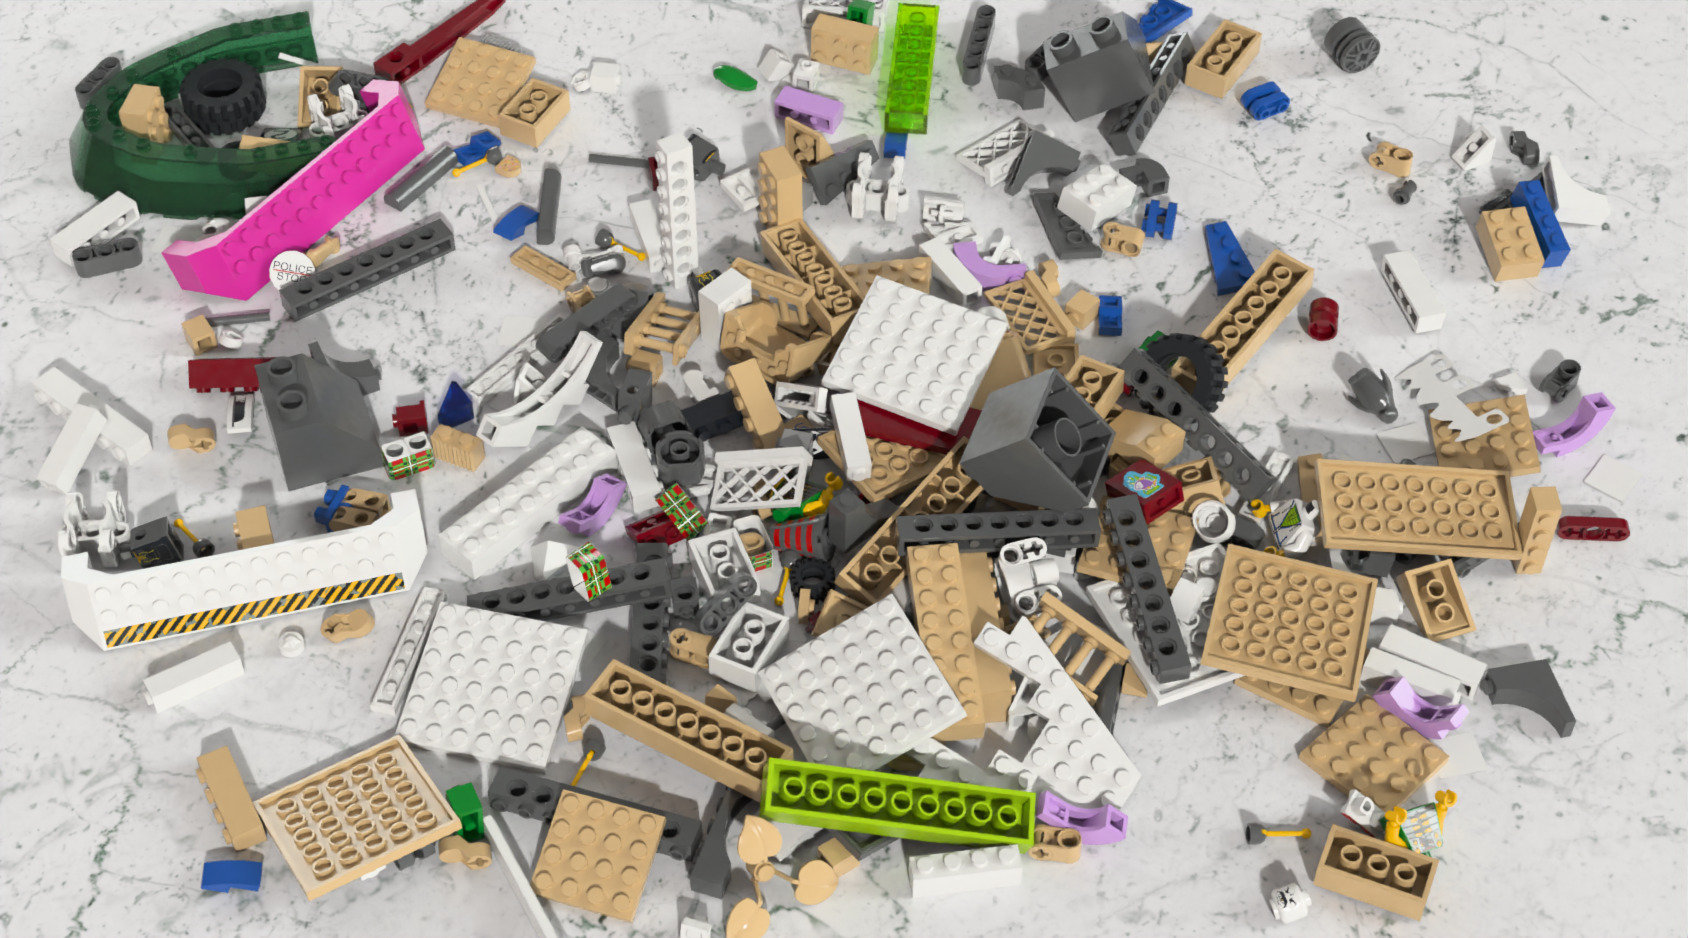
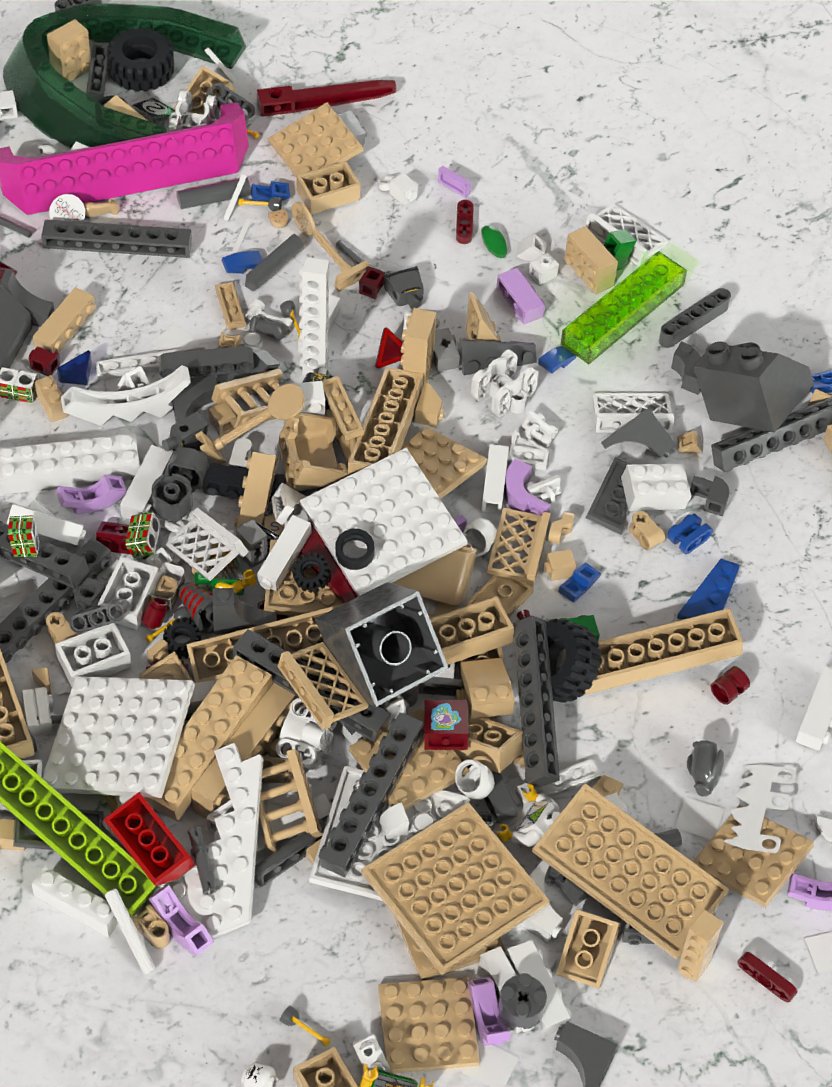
camera: 35 degrees right, 5 degrees up
(395, 371) = (65, 321): none -> tan brick
(449, 170) = (234, 197): none -> white sticker
(546, 153) = (306, 224): none -> tan piece
(554, 564) = (52, 525): none -> white brick
(645, 46) = (454, 181): none -> lavender tile
(690, 84) = (460, 227): none -> dark red beam
(717, 306) = (282, 405): none -> tan piece
(741, 218) = (389, 349): none -> piece
(768, 572) = (155, 613): none -> dark red brick
(833, 243) = (429, 407): none -> tan slope
(886, 451) = (305, 562): none -> black tyre
(920, 373) = (354, 563): none -> black tyre
(992, 759) = (149, 841): none -> red slope
(1014, 530) = (308, 689): none -> tan fence
(1047, 858) = (130, 931): none -> white axle
(1053, 748) = (199, 851): none -> dark grey pin
(1083, 146) = (689, 442): none -> tan slope
(1445, 674) = (522, 1001): none -> dark grey brick

